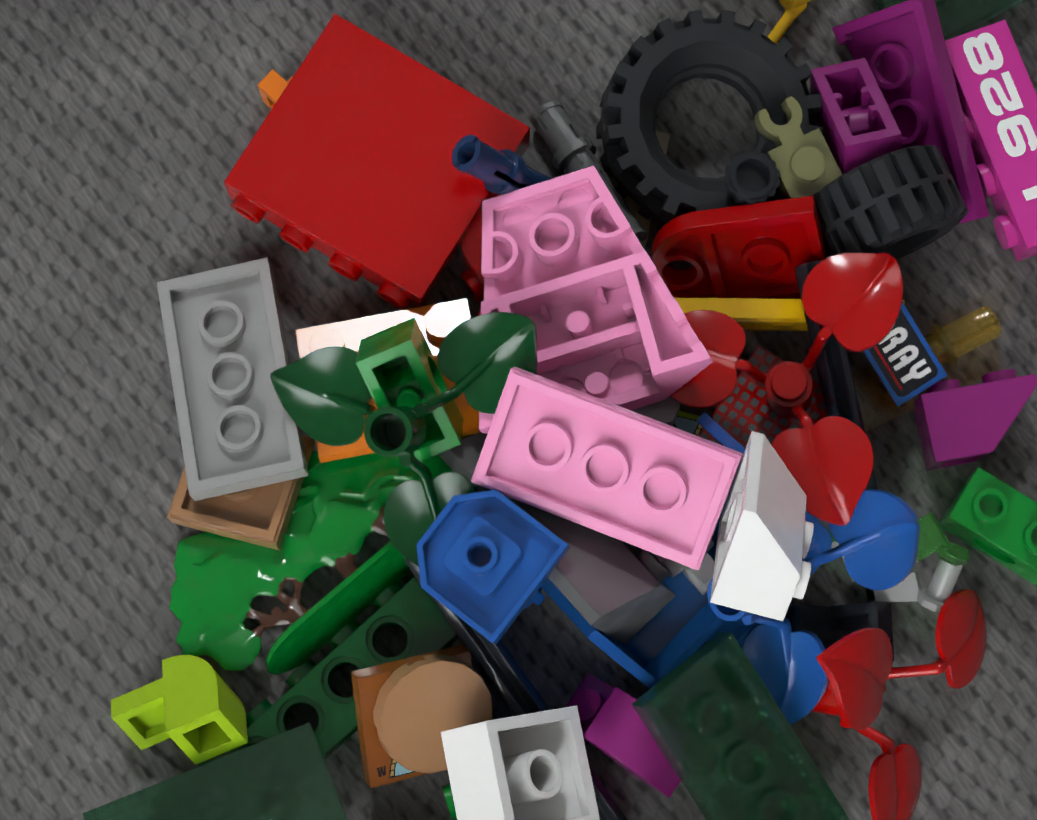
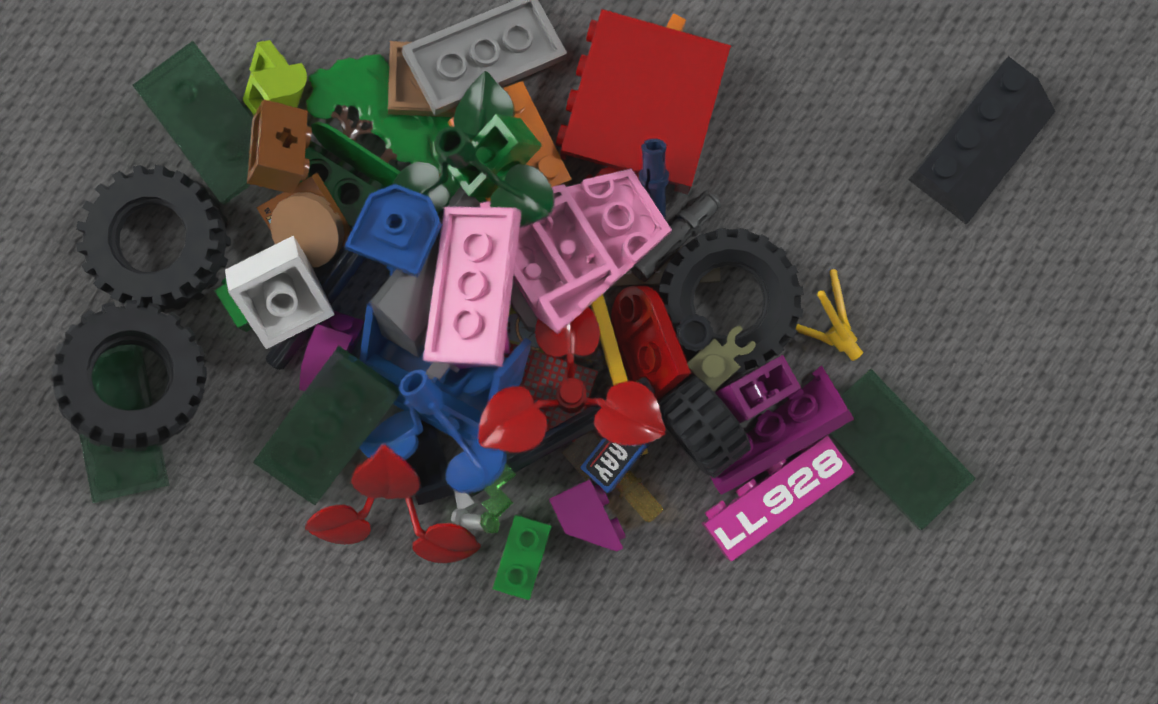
camera: 75 degrees right, 5 degrees up
(297, 717) = (278, 147): none -> dark orange brick
(762, 536) = (451, 392): white slope -> none

